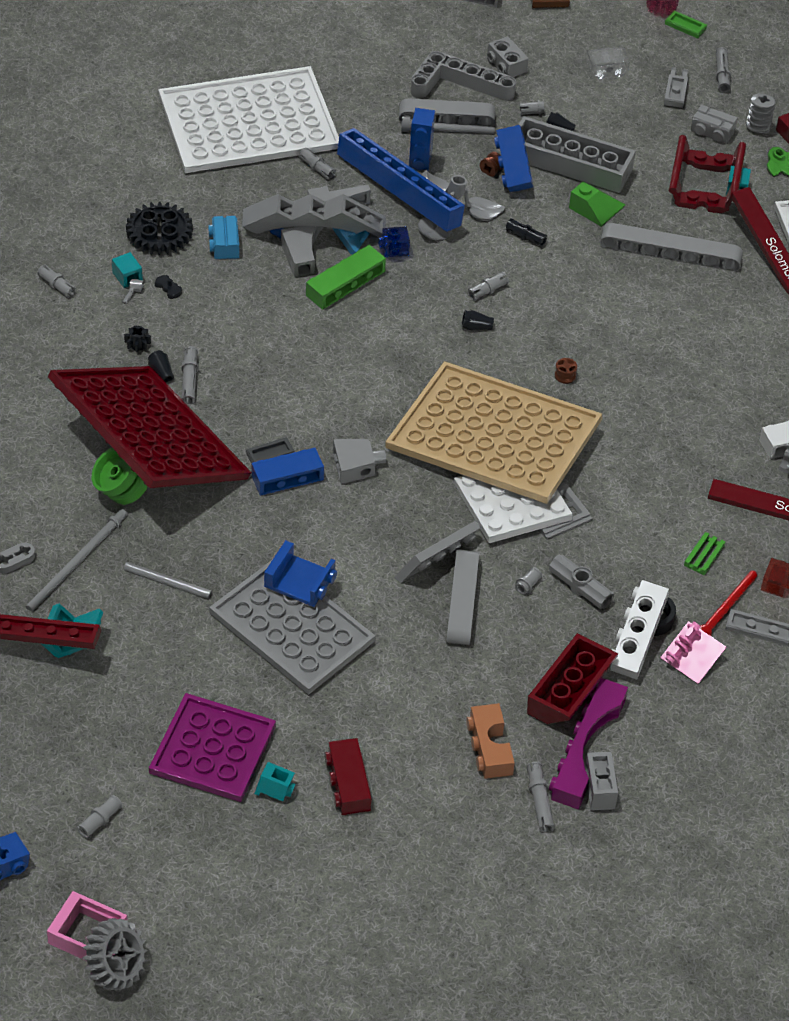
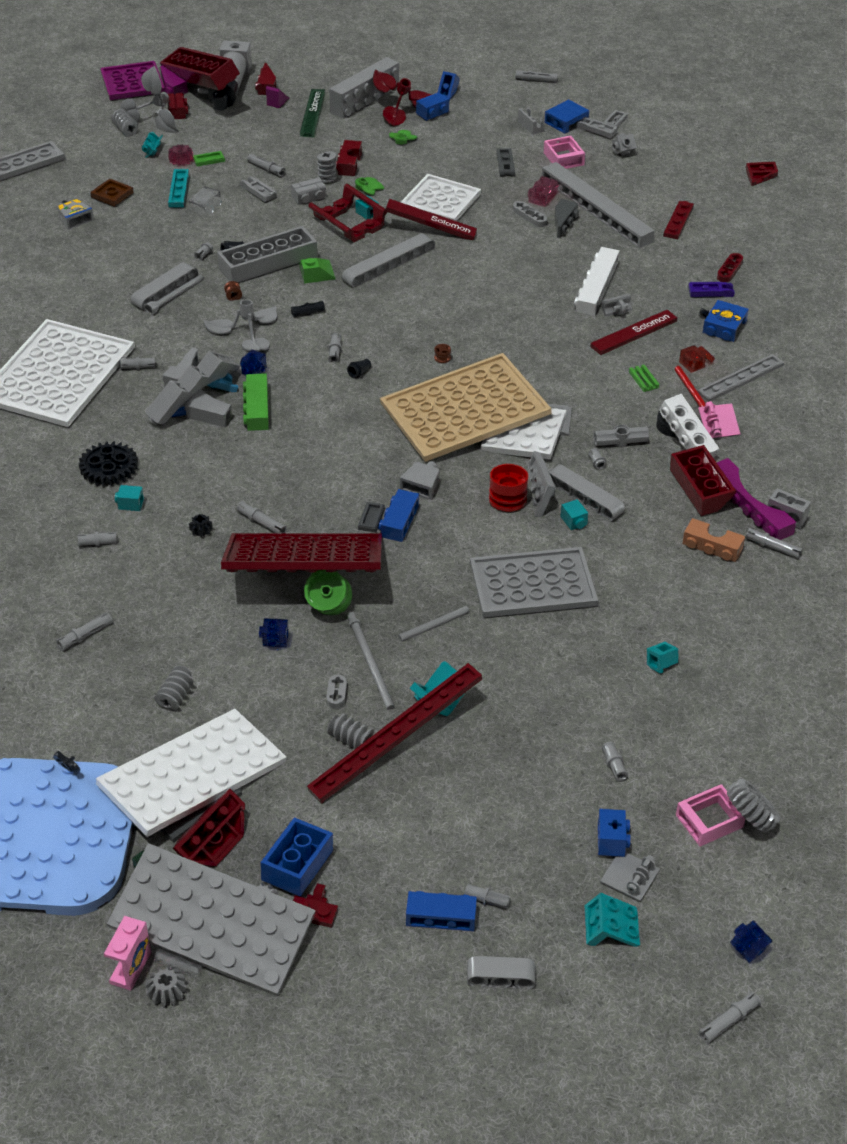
camera: 50 degrees left, 5 degrees down
(43, 470) = (274, 632): none -> clear blue brick
(135, 286) = (148, 502): light grey hand -> none
(160, 364) = (237, 526): black cone -> none
(168, 286) = (165, 488): black piece -> none
(212, 747) = (603, 673): magenta plate -> none
(225, 237) = (155, 437): dark azure brick -> none
(298, 577) = (503, 554): blue panel -> none
(348, 776) = (687, 618): dark red brick -> none
(400, 179) = (204, 331): blue brick -> none
(400, 530) = (508, 487): none -> red wheel
(419, 605) = (574, 514): none -> teal brick
(421, 138) = (186, 301): blue brick -> none
(463, 73) = (123, 265): light grey beam -> none
(507, 57) = (148, 236): light grey brick -> none
(513, 158) = (248, 275): blue brick -> none
(610, 31) = (178, 188): none -> teal plate

